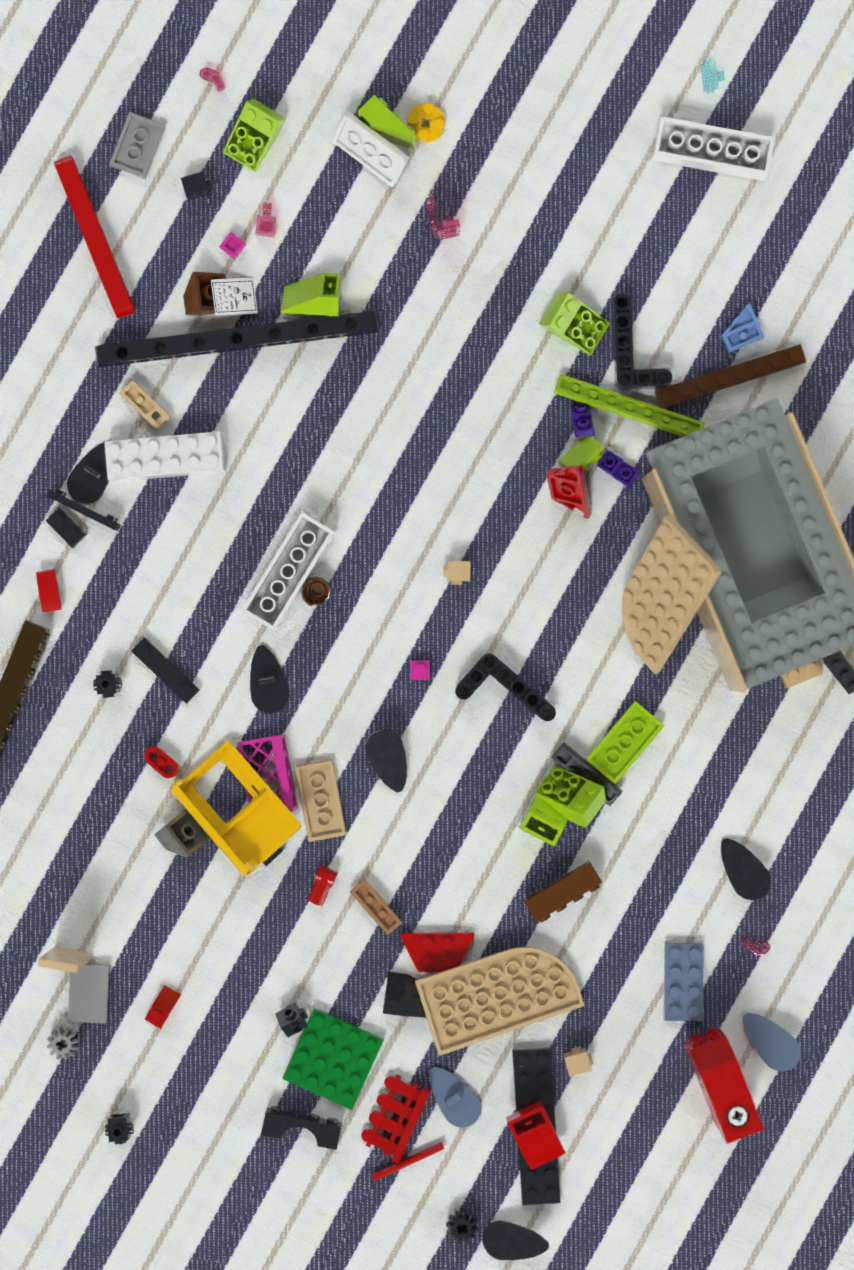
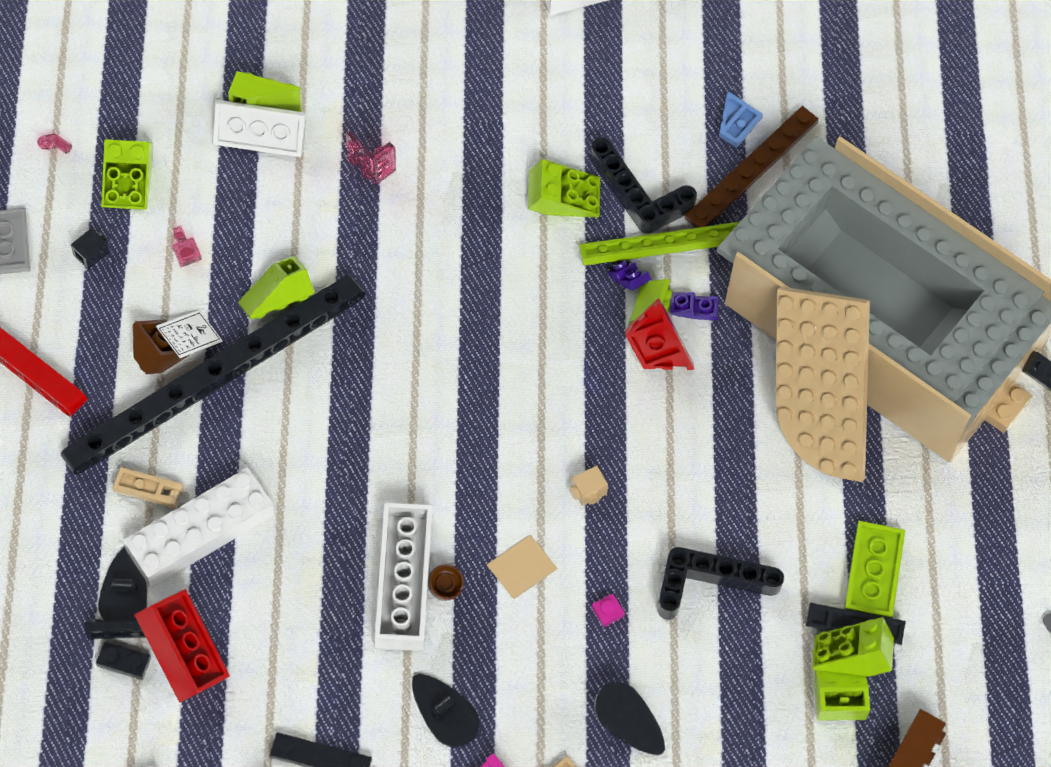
camera: 30 degrees left, 25 degrees down
(48, 590) = (138, 736): red slope -> none
(107, 544) = (182, 645): none -> red slope
(232, 245) = (161, 286): dark pink plate -> none
(378, 604) = (522, 566): none -> tan sticker
(428, 112) = (309, 75): yellow plate -> none

